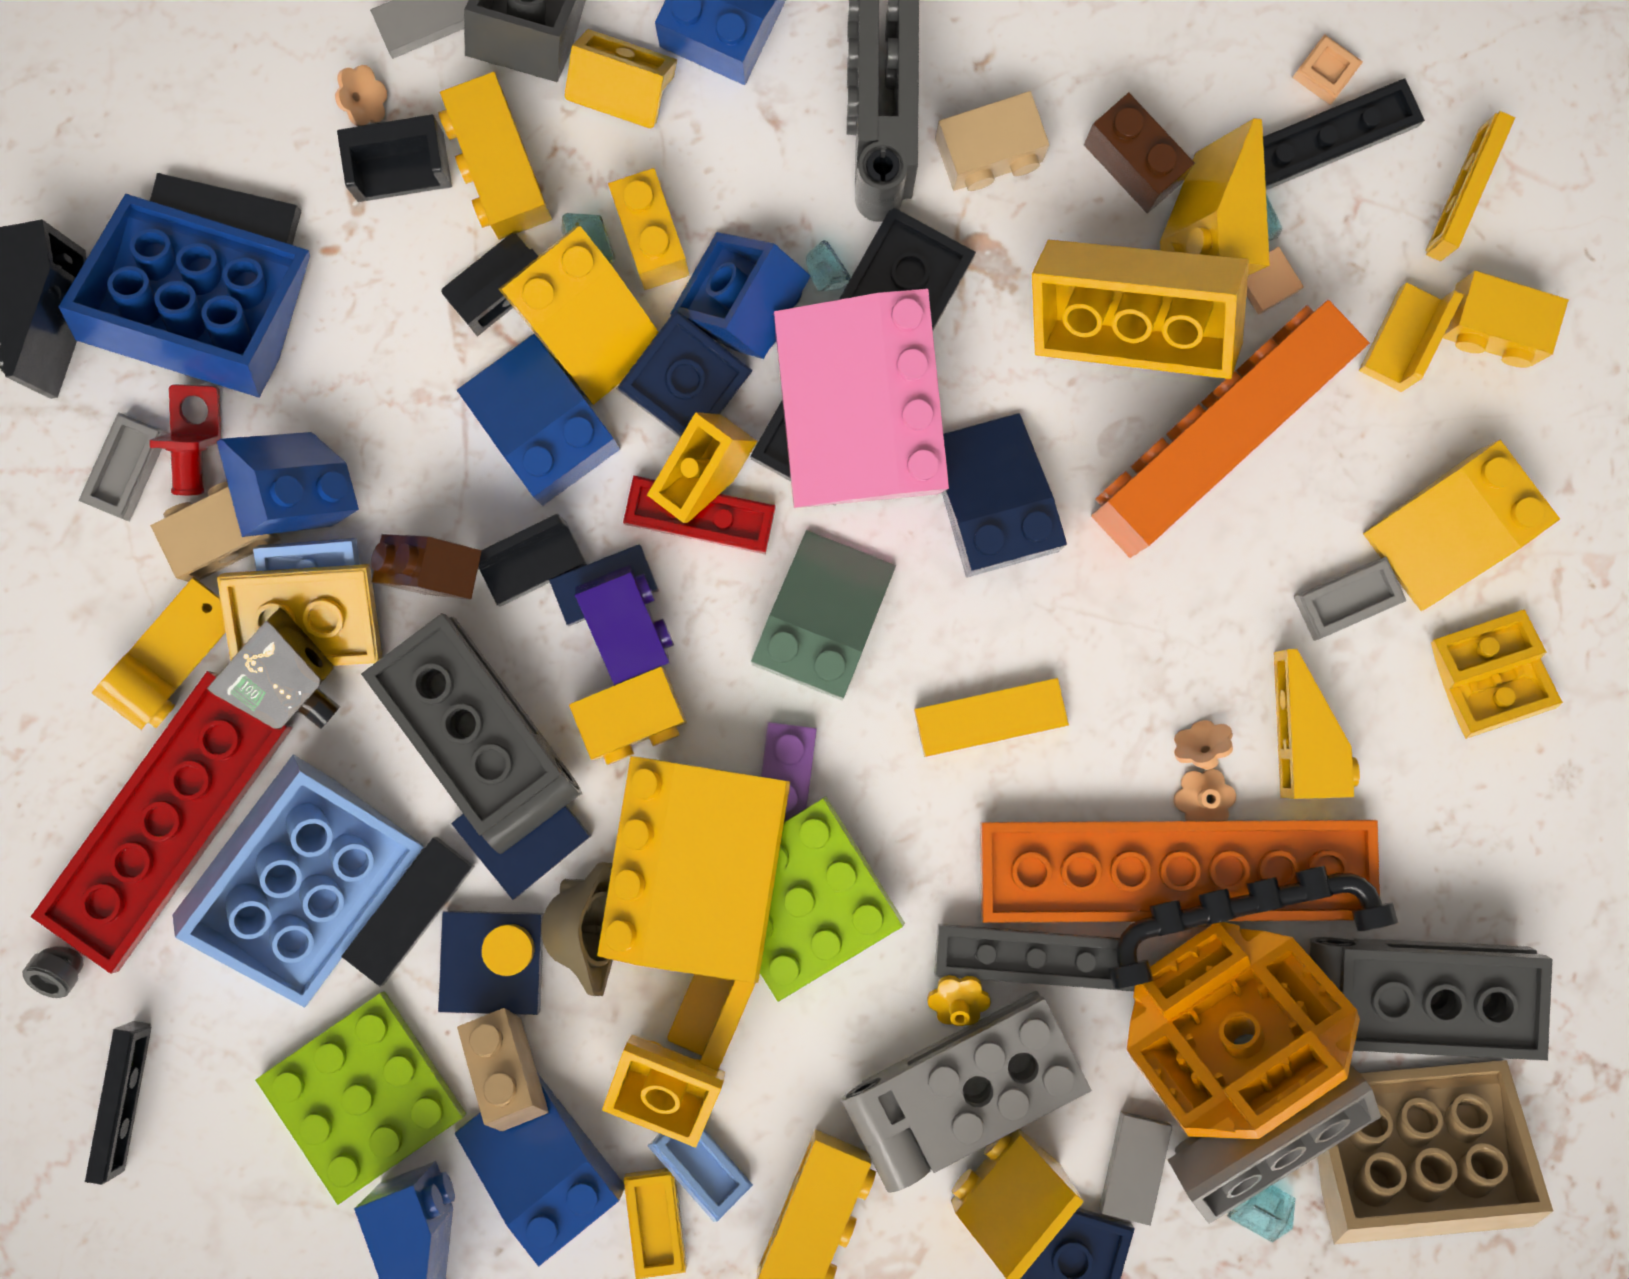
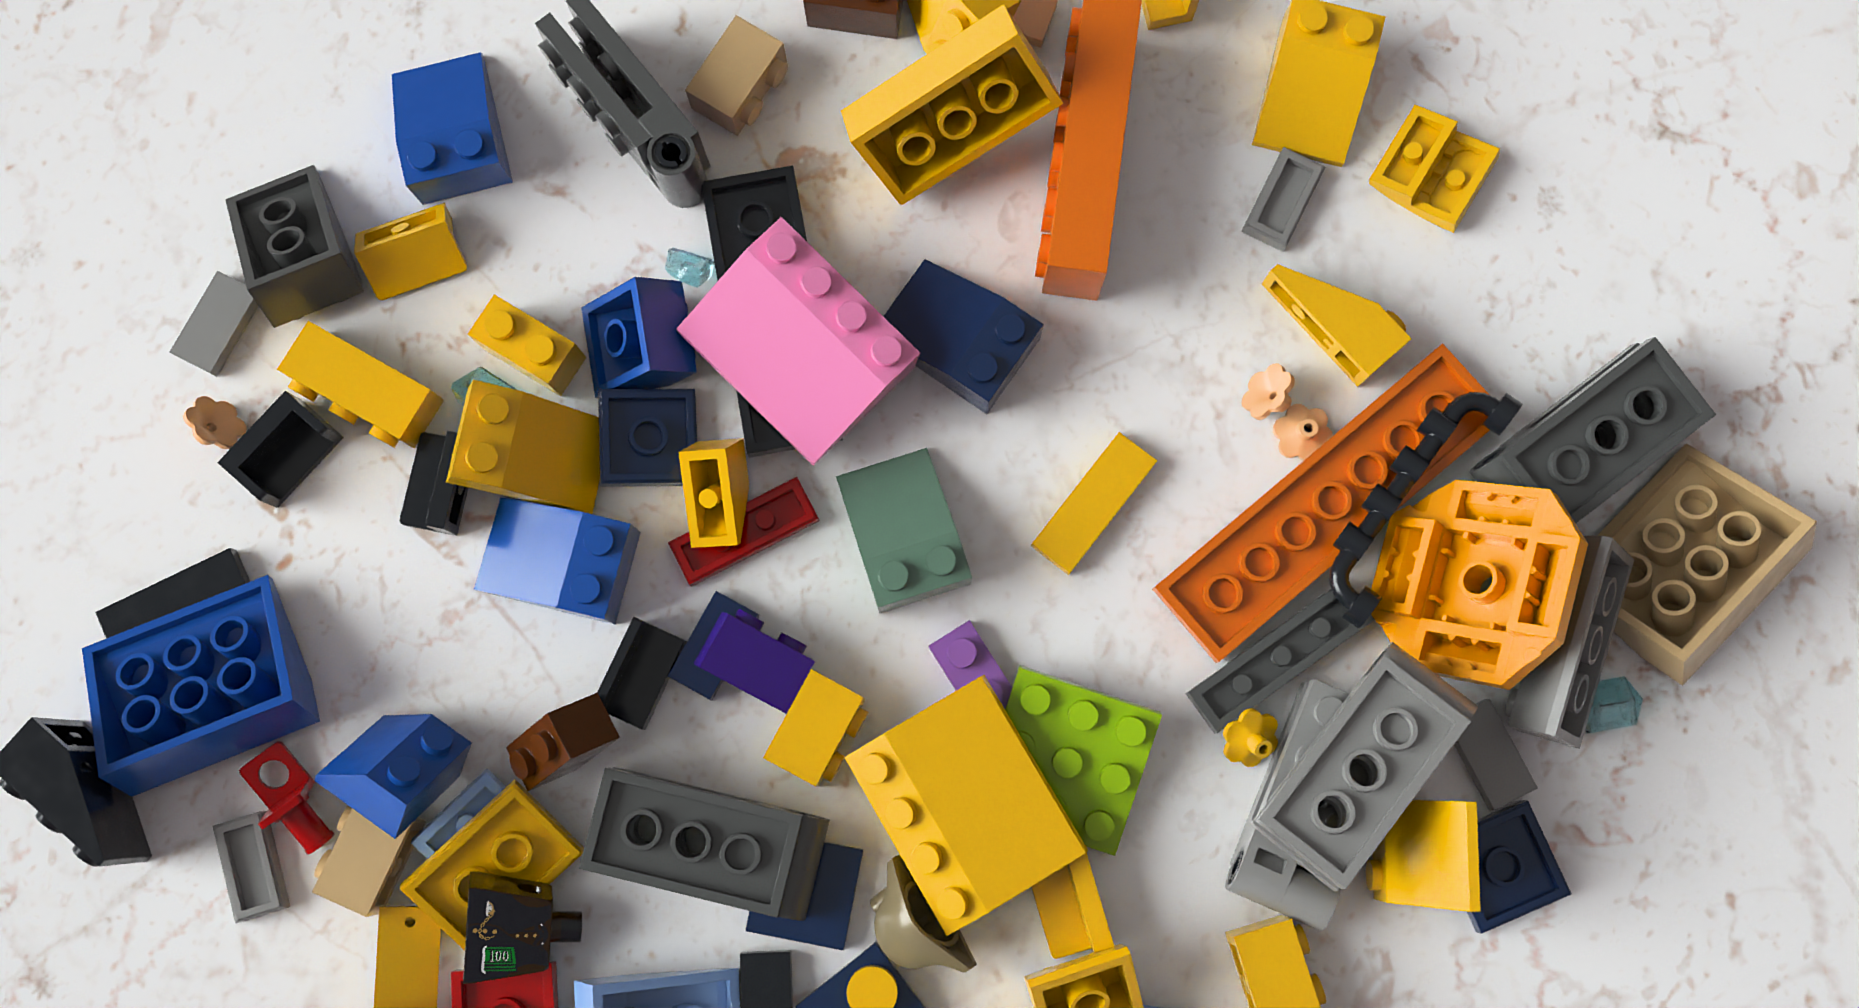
camera: 35 degrees left, 5 degrees down
(1076, 1092) = (1400, 730): none -> light grey hinge

